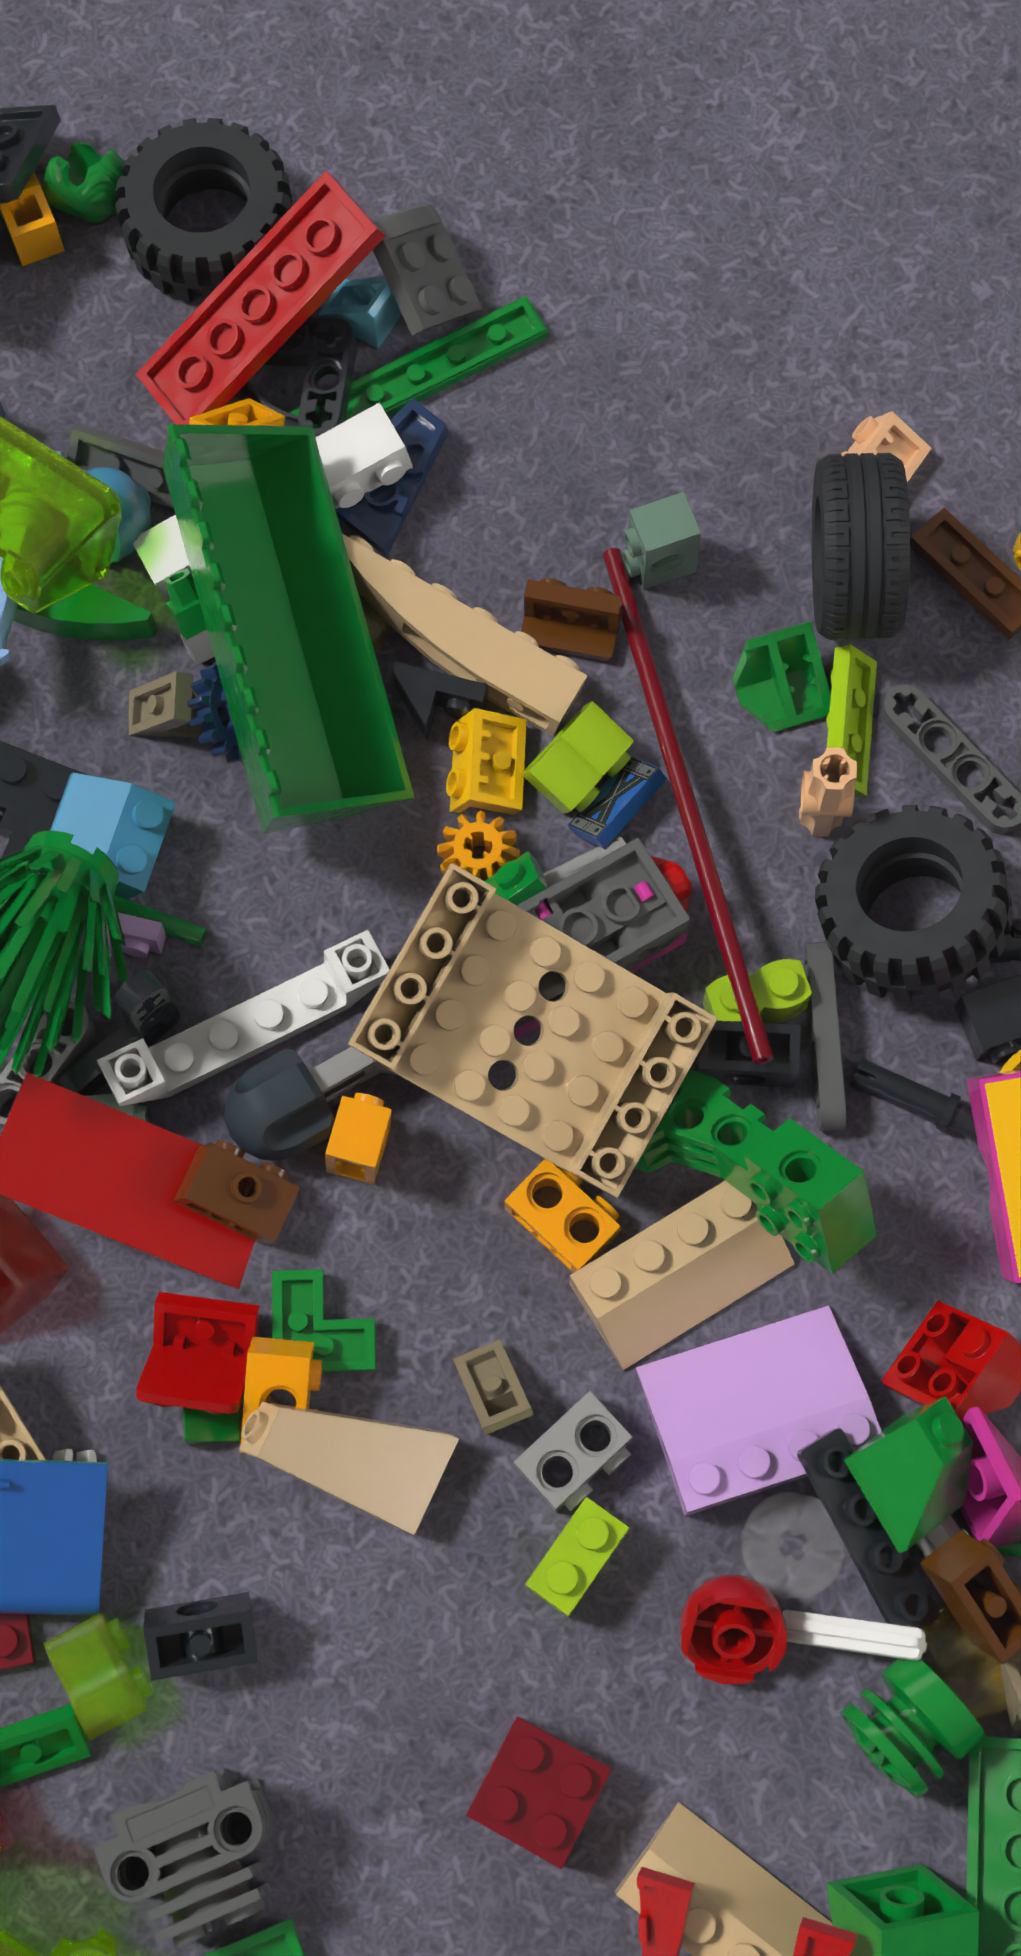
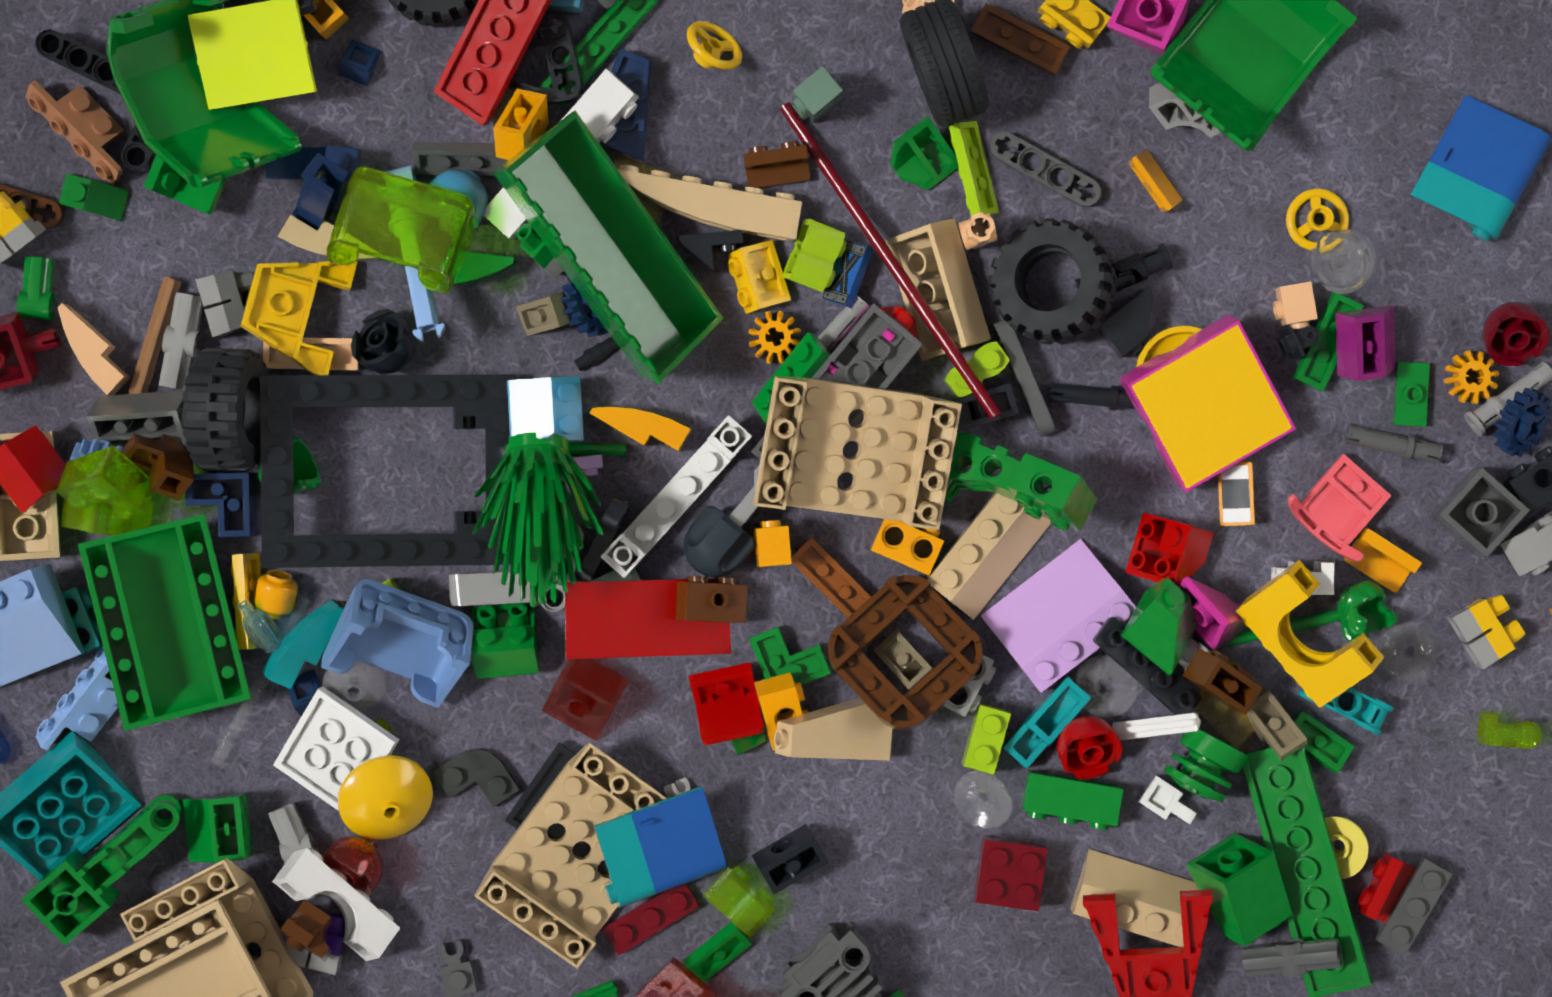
camera: 25 degrees left, 15 degrees up
(52, 308) = (359, 62): none -> dark blue slope
(214, 790) = (596, 353): none -> black animal
(241, 908) = (642, 425): none -> light orange slope
(431, 1233) = (829, 577): none -> dark orange plate
(520, 1659) = (978, 809): none -> clear dish
(527, 1440) = (938, 619): none -> reddish brown plate
(540, 438) = (710, 49): none -> yellow piece
(678, 1708) = (1071, 799): none -> green brick
(679, 1567) = (1046, 722): none -> teal slope
(753, 840) = (941, 273): none -> tan slope
(824, 1764) = (1164, 799): none -> white plate

